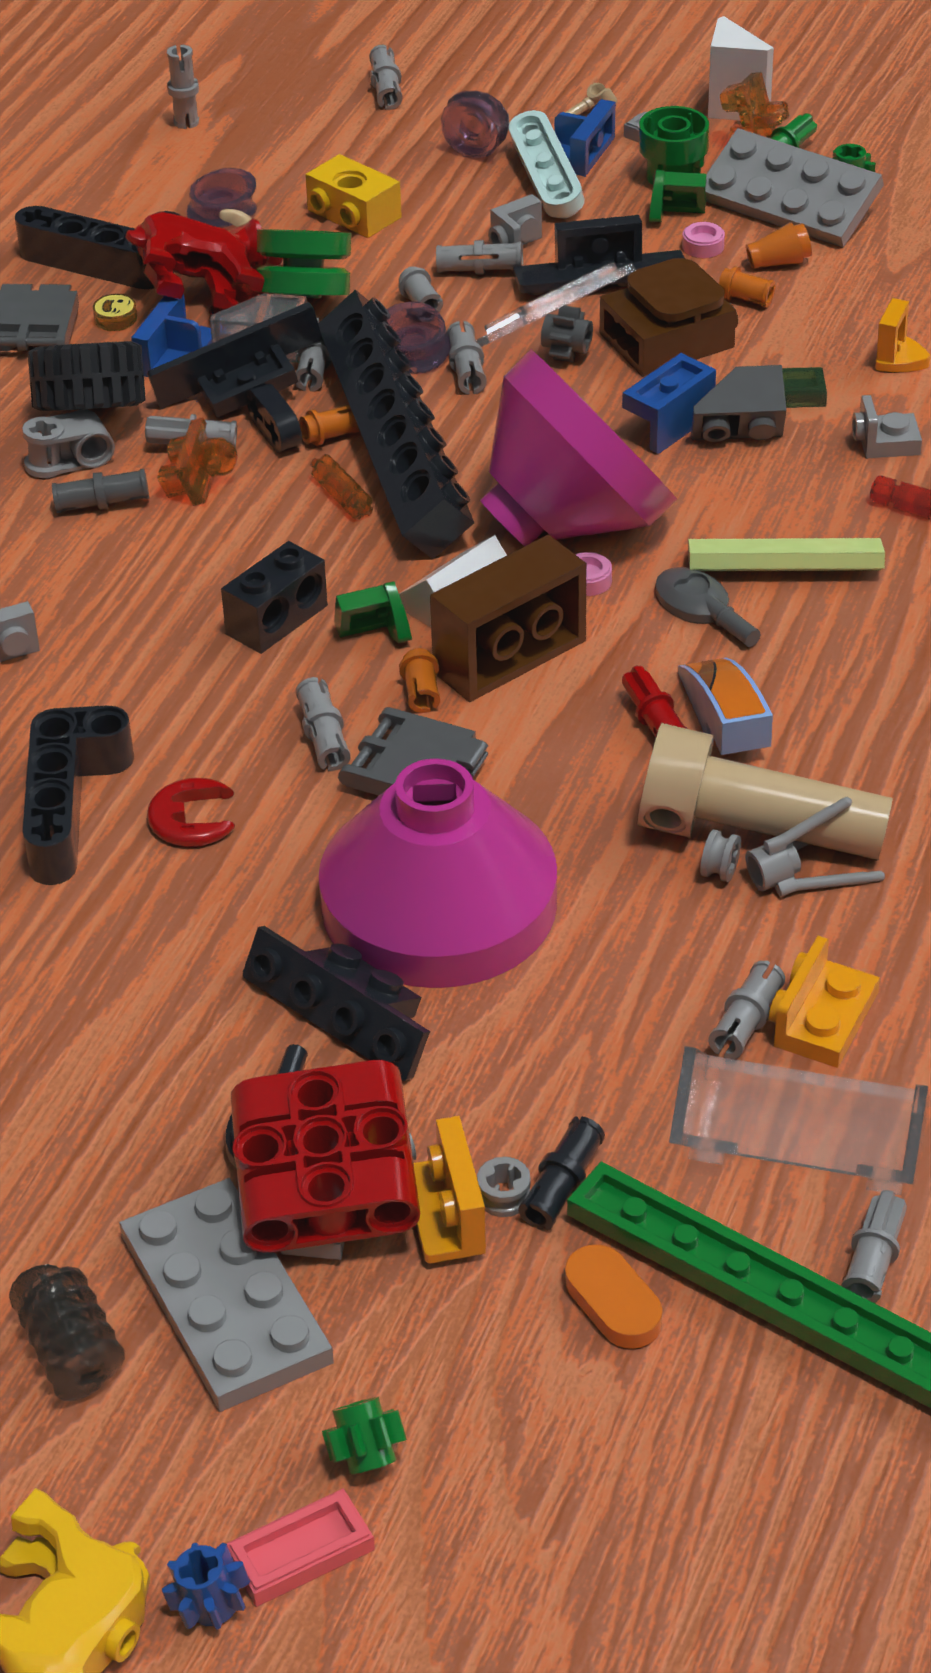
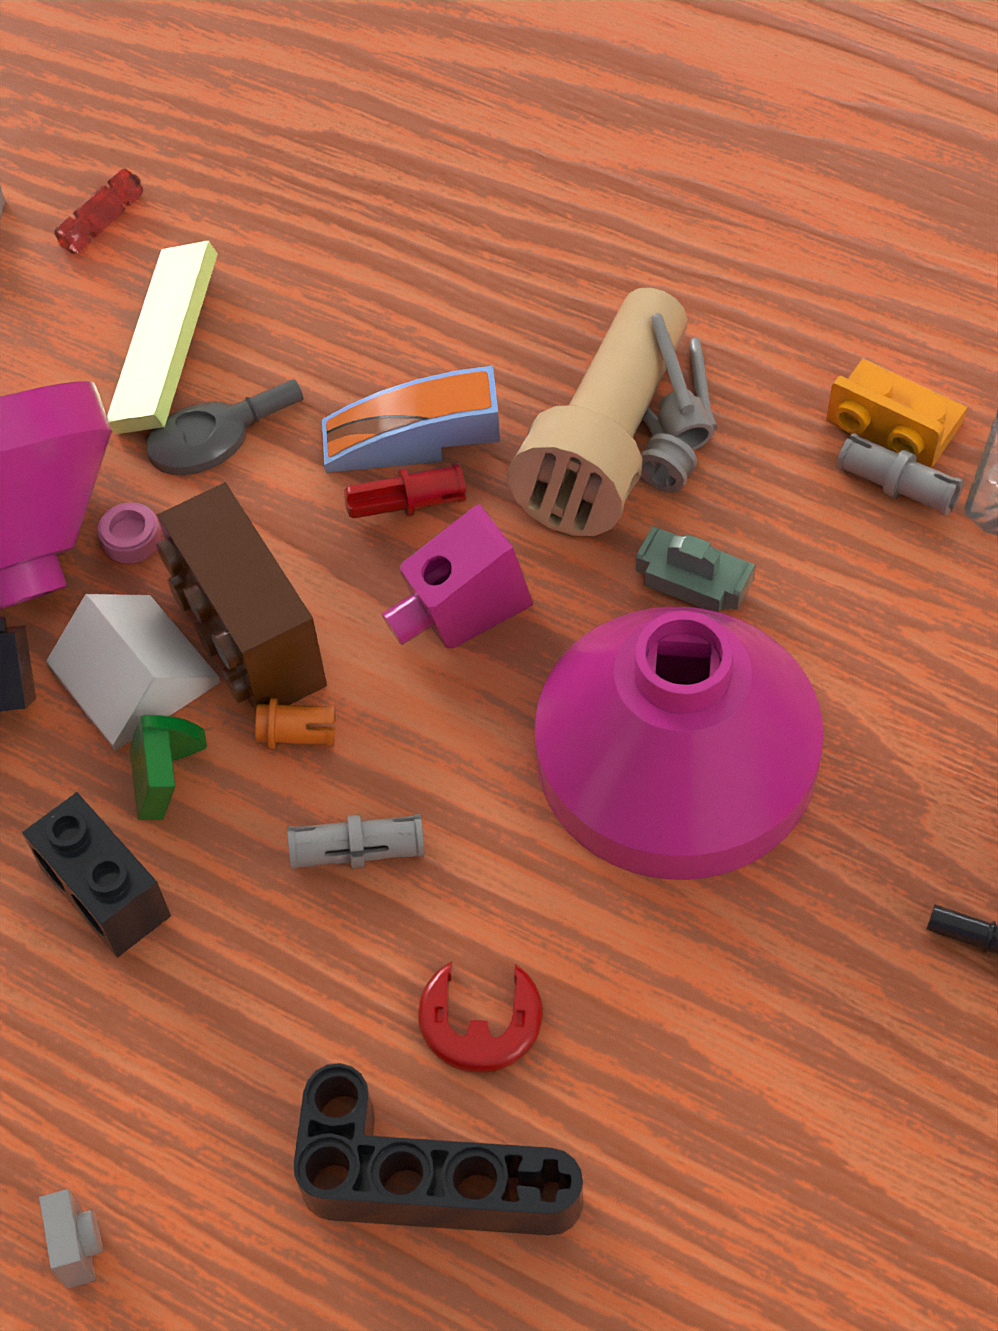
camera: 80 degrees left, 15 degrees up
(342, 996) = (852, 853): black bracket -> none
(410, 741) = (447, 743): dark grey plate -> none
(557, 739) = (460, 583): none -> dark pink torso
(608, 882) = (693, 570): none -> sand green piece

